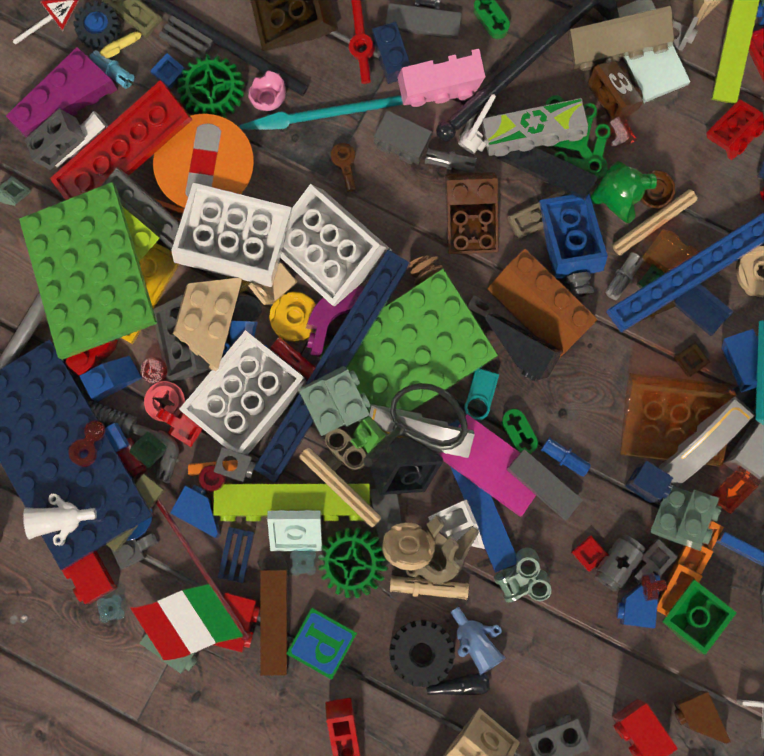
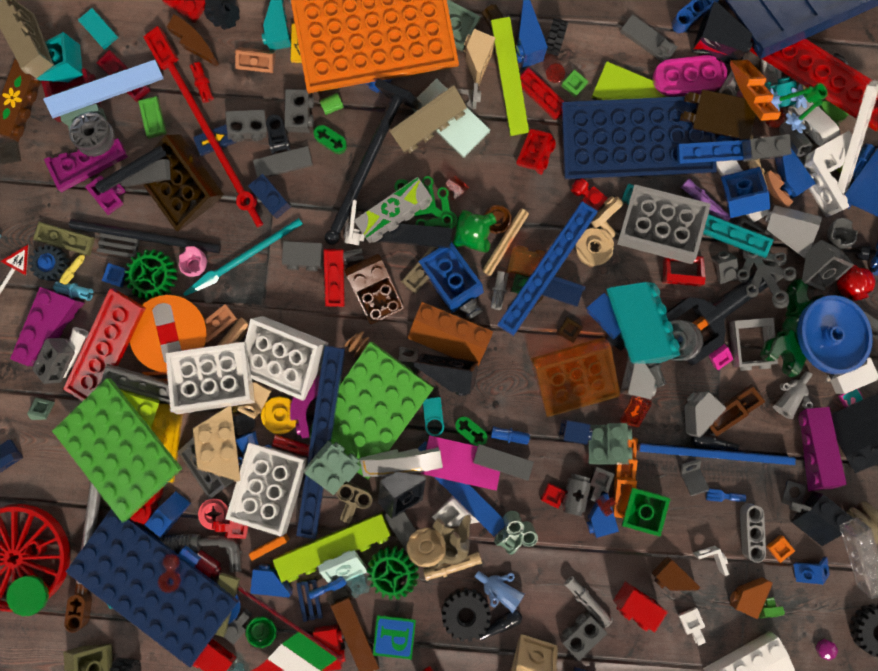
camera: 25 degrees left, 5 degrees up
(47, 520) = (165, 639): white piece -> none
(148, 449) = (216, 555): clear green plate -> none
(154, 370) = (196, 495): clear red tile -> none
(161, 566) = (260, 632): none -> green hair
(211, 480) = (269, 557): dark red tile -> none
(244, 468) = (289, 540): dark grey bracket -> none
(268, 176) = (219, 322): none -> nougat plate
(272, 547) = (335, 585): none -> blue piece
(286, 195) = (236, 333): none -> light nougat slope
(340, 487) = (361, 526): tan axle -> none
(343, 157) = (267, 286): reddish brown plate -> none
(367, 435) = (366, 481): bright green tile -> none
(399, 428) = (385, 469): pearl dark grey piece -> none
(429, 179) = (334, 277): none -> red tile
(441, 81) = (313, 203): bright pink wedge -> none
(576, 692) = (582, 595): none -> light grey pin
(614, 90) = (440, 159): reddish brown slope -> none
(707, 441) = (603, 386): light grey slope -> none

